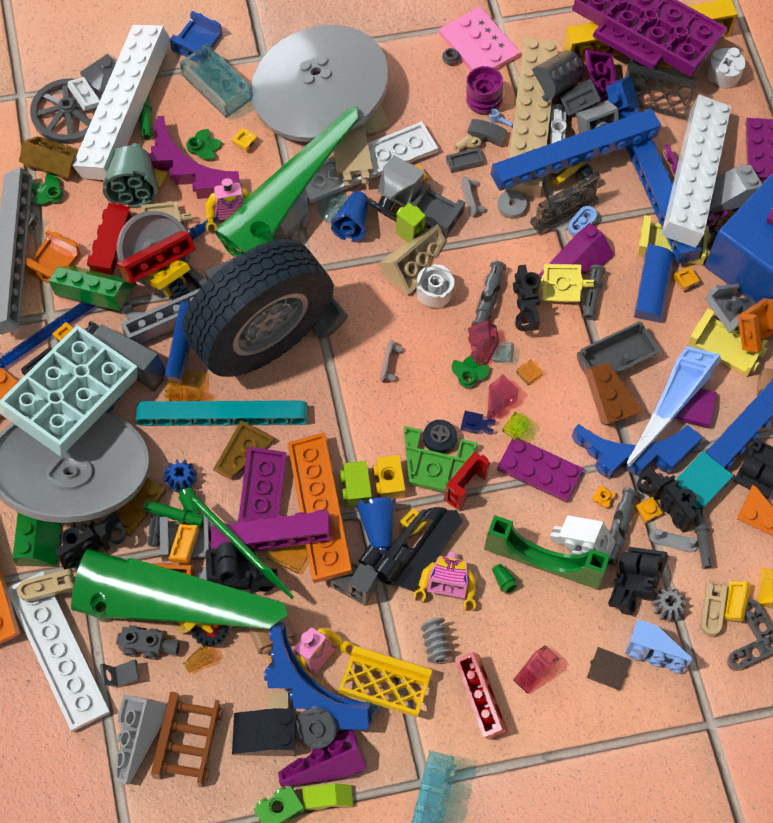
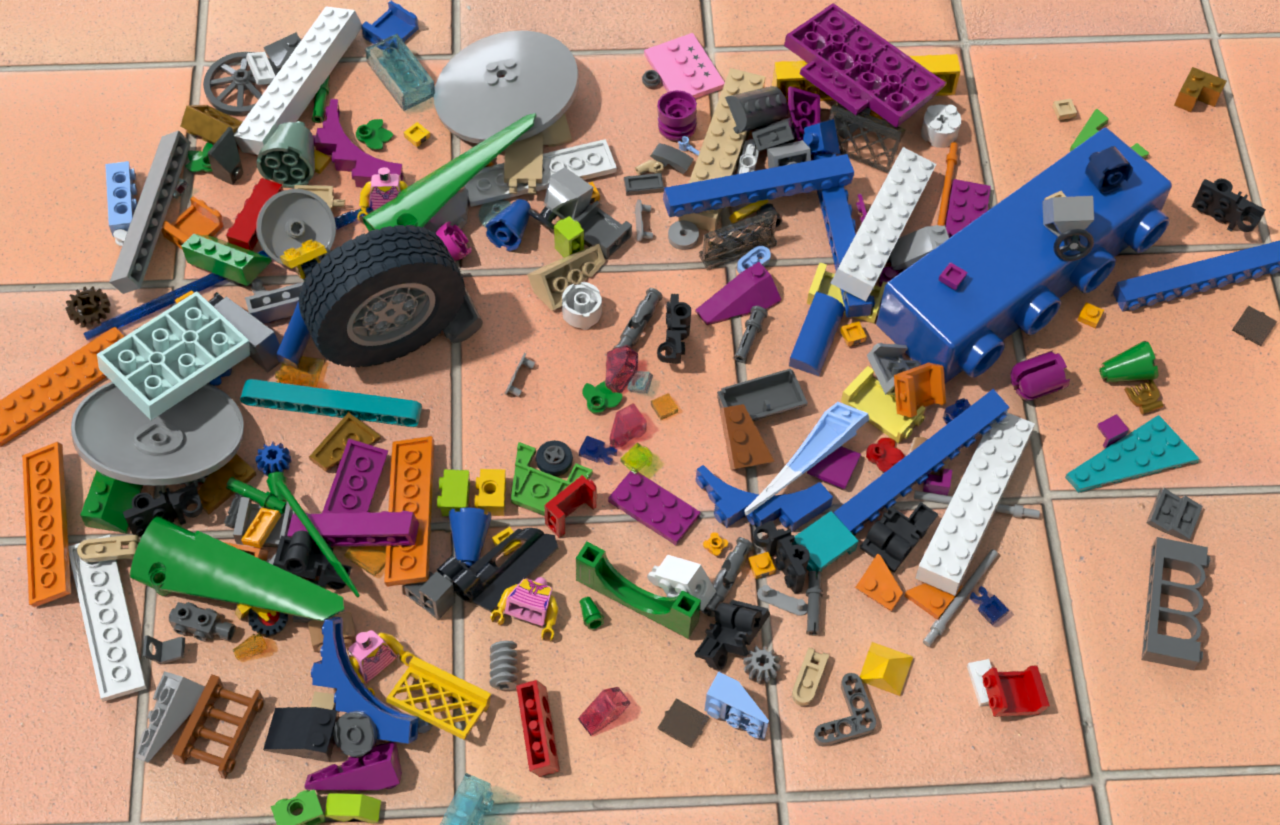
camera: 10 degrees right, 5 degrees down
(70, 188) = (225, 158): none -> pearl dark grey slope
(156, 256) = (295, 235): red brick -> none
(304, 236) = (454, 240): none -> dark pink cylinder
(563, 283) = (718, 320): light yellow plate -> none
(736, 601) = (836, 672): yellow tile -> none
(738, 389) = (887, 453): none -> red plate
(741, 100) = (951, 161): none -> orange bar

